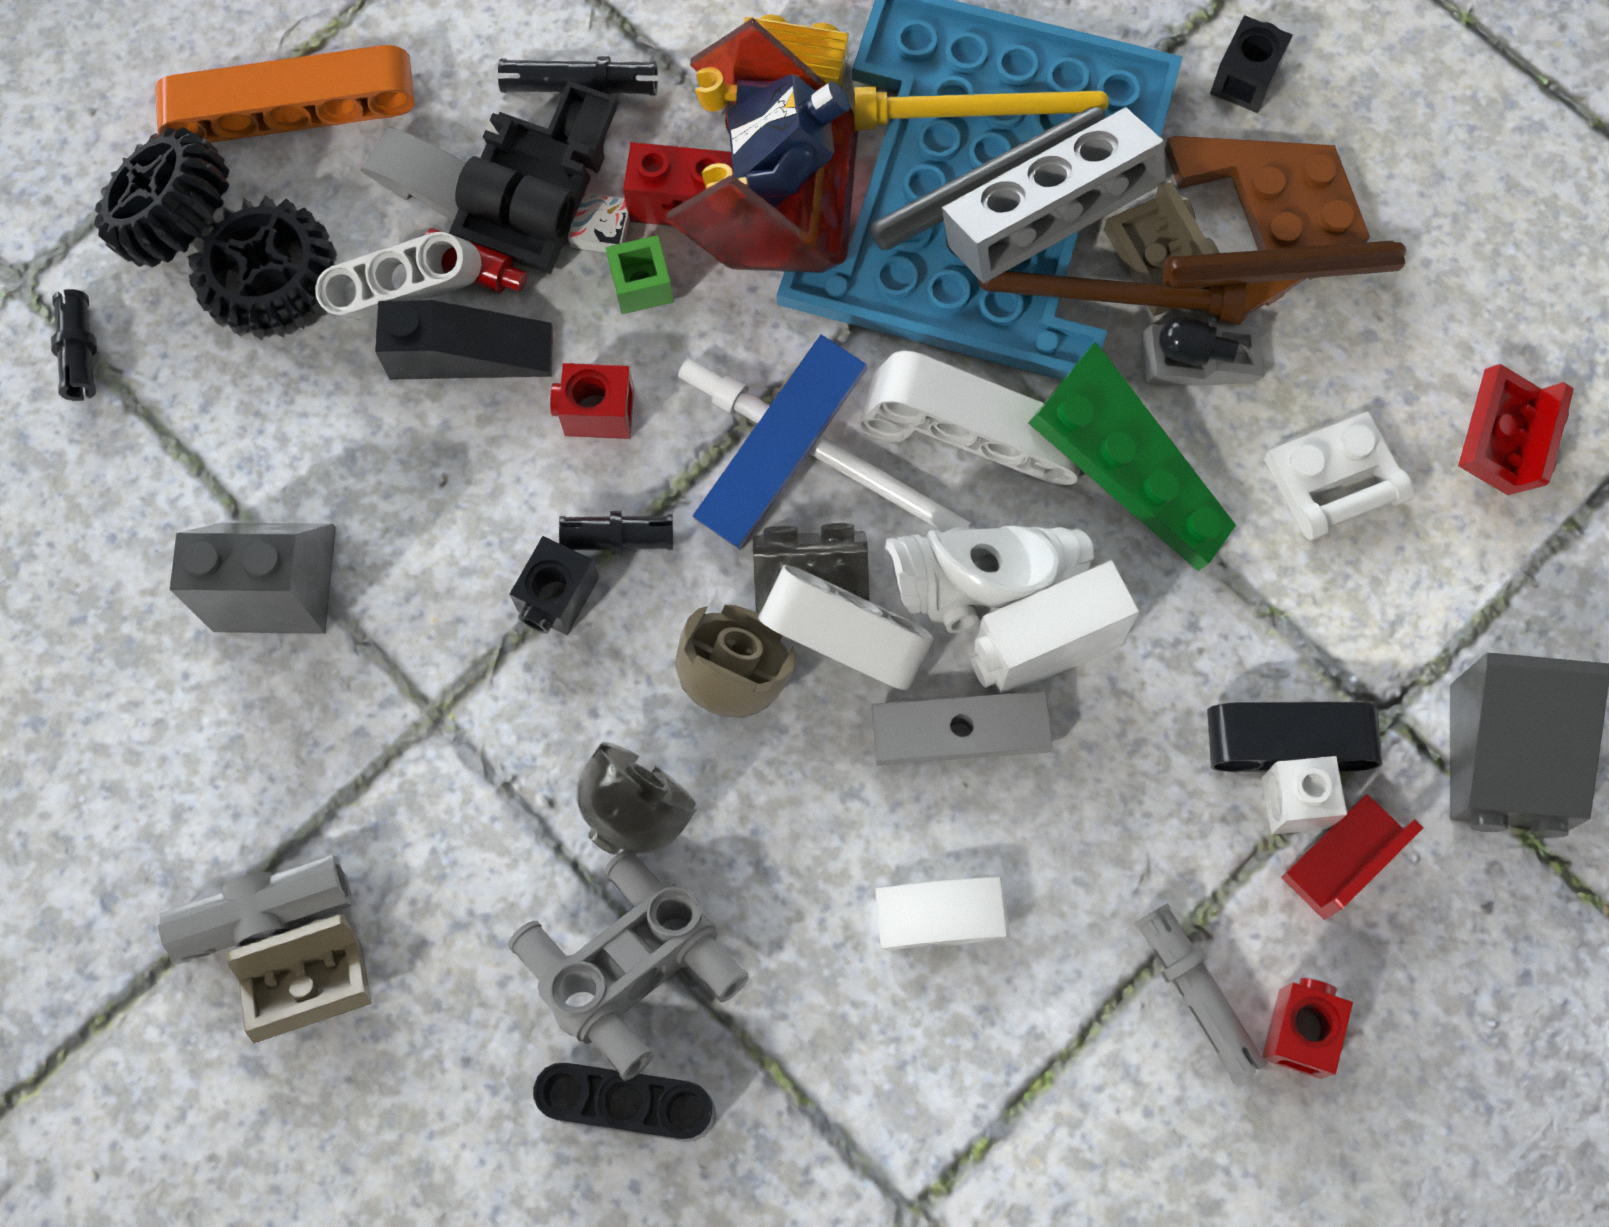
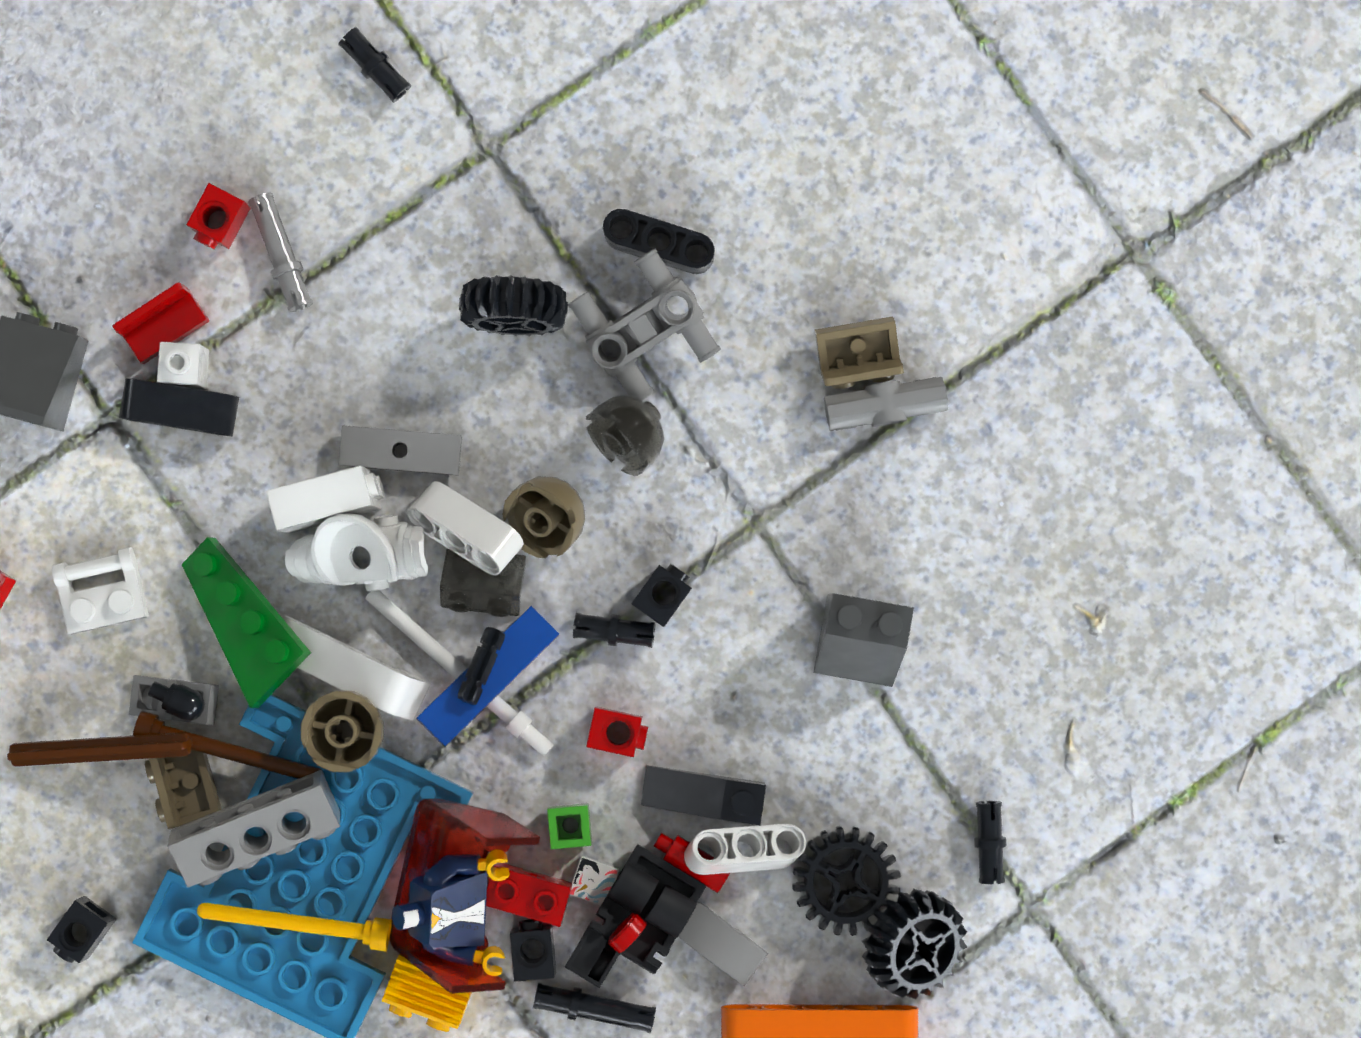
camera: 170 degrees left, 15 degrees up
(539, 144) = (626, 933): none -> red tile
(664, 105) = (527, 968): none -> black brick
(789, 445) = (481, 665): none -> black axle
(828, 952) = (513, 305): none -> black gear
(927, 210) = (300, 857): dark grey axle -> none
(942, 913) = (433, 330): white slope -> none
(962, 318) = (342, 731): none -> dark tan cylinder
(1287, 191) = (78, 818): dark orange wing -> none

